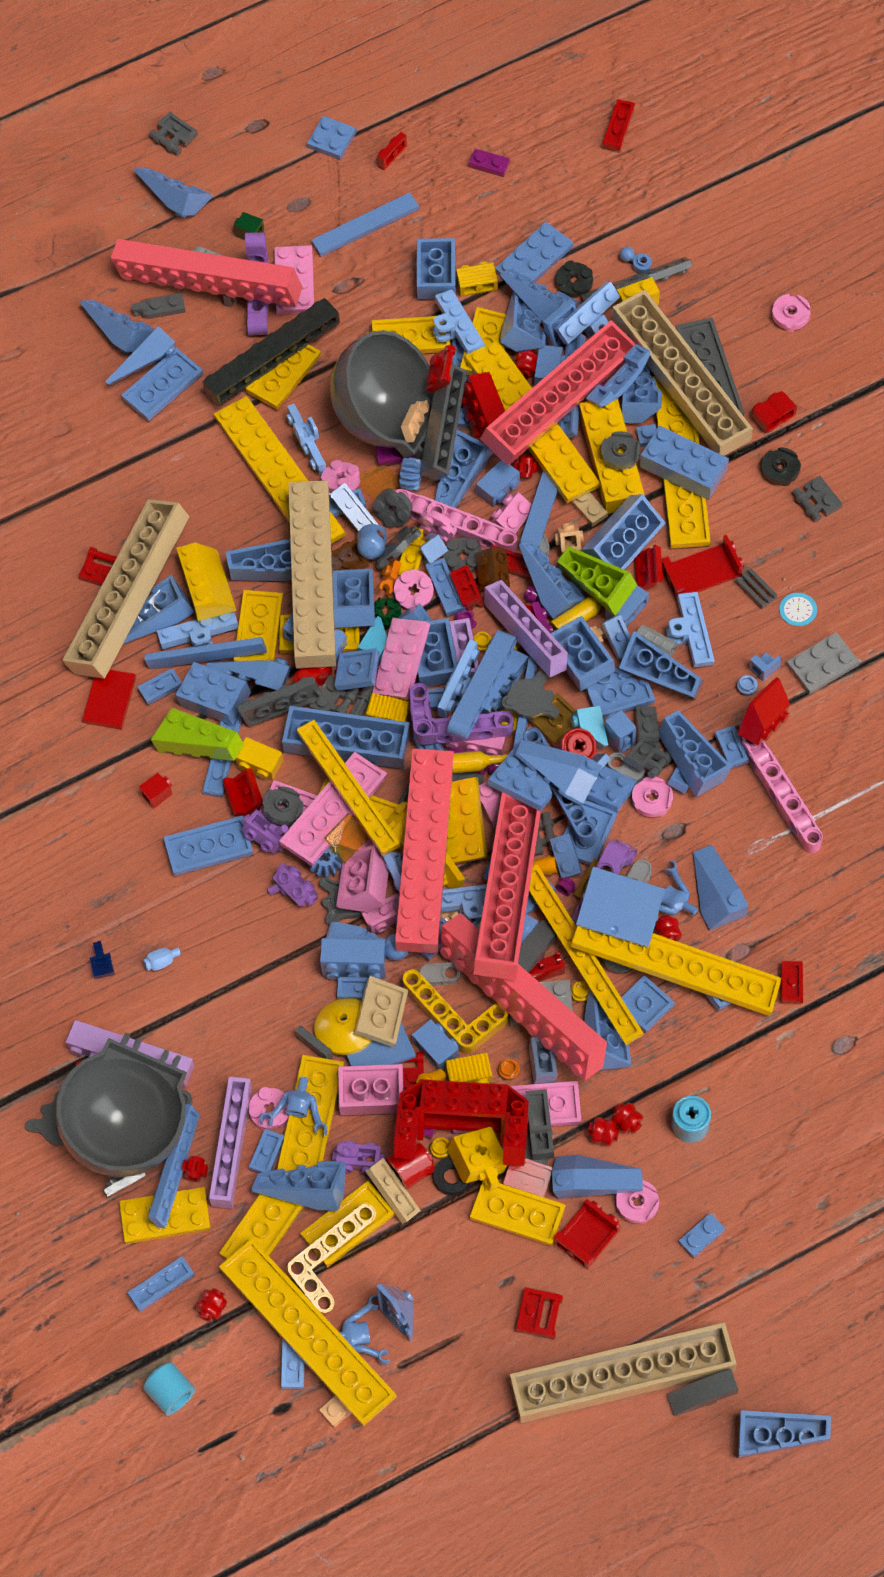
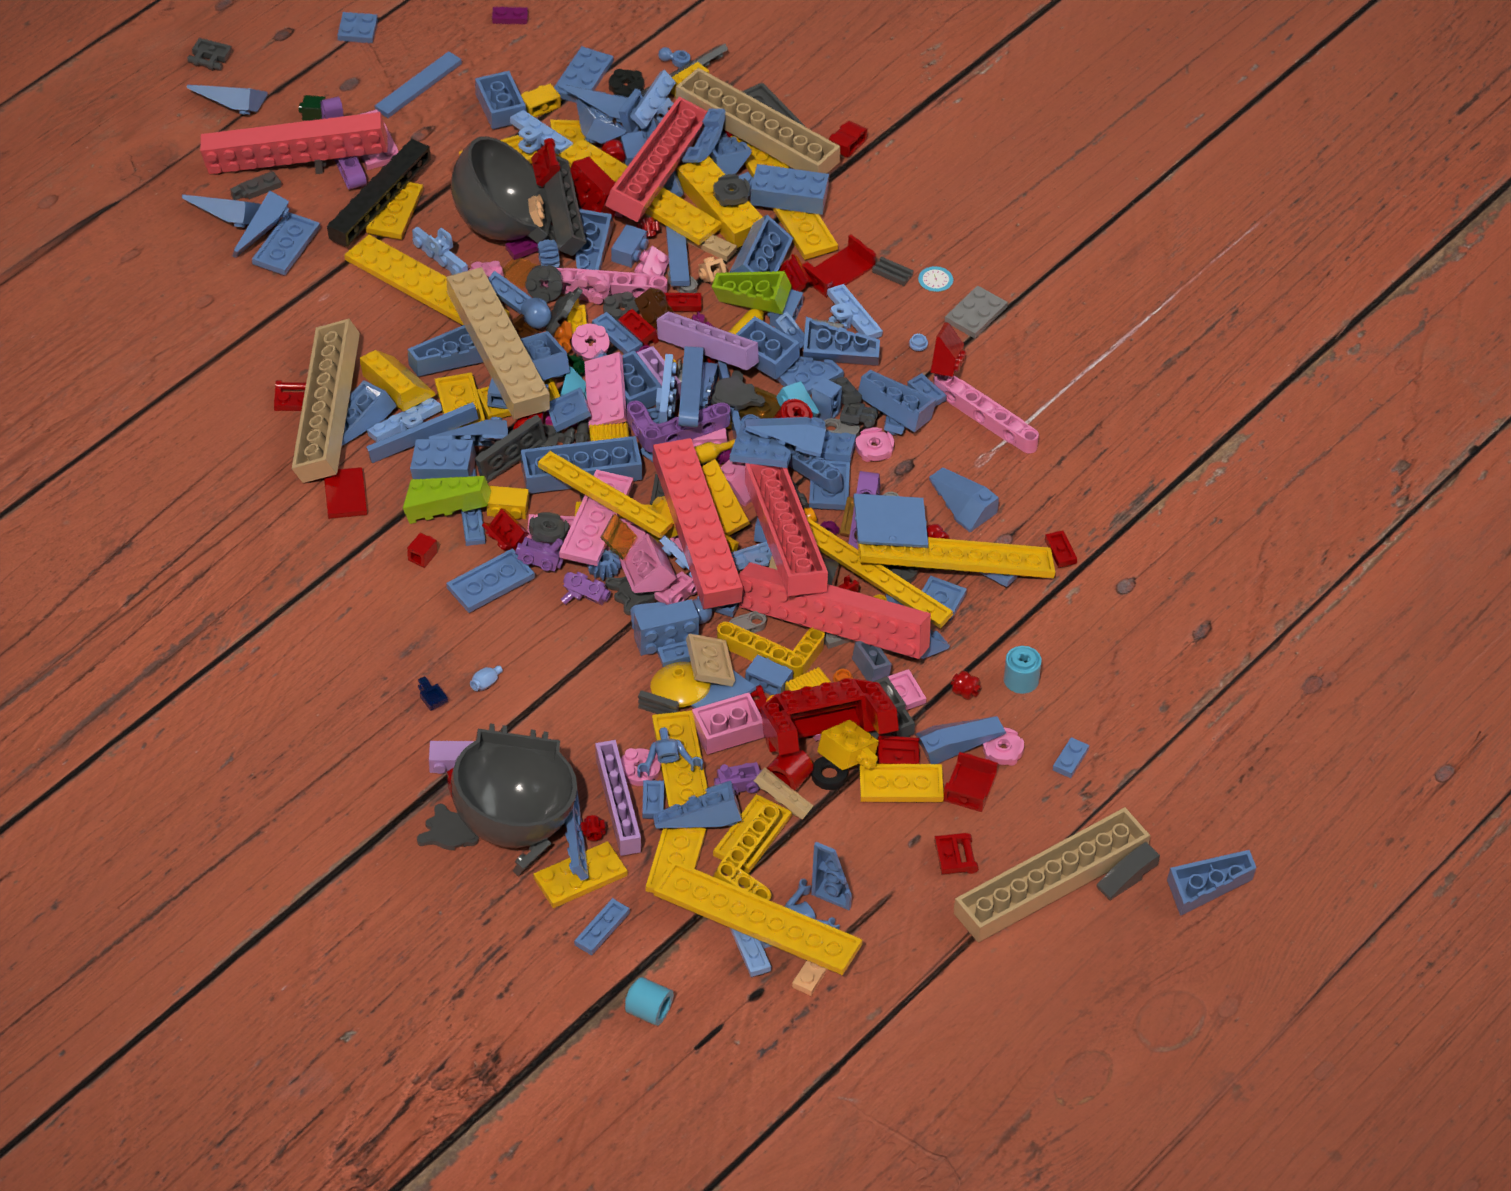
camera: 25 degrees left, 15 degrees down
(160, 686) = (389, 471): medium blue plate -> none
(211, 1304) = (656, 928): red piece -> none
(392, 150) = (417, 26): red plate -> none
(432, 548) = (594, 305): panel -> none
(439, 1147) = (811, 751): yellow plate -> none
(552, 588) = (720, 314): medium blue wedge -> none
(566, 855) = (820, 503): medium blue plate -> none
(603, 1131) = (949, 701): red piece -> none
(673, 899) = (933, 512): medium blue piece -> none
(764, 666) = (926, 325): medium blue panel -> none
(781, 476) = (866, 183): pearl dark grey plate -> none
(787, 321) = (821, 66): bright pink plate -> none
(821, 495) = (915, 194): dark grey plate -> none

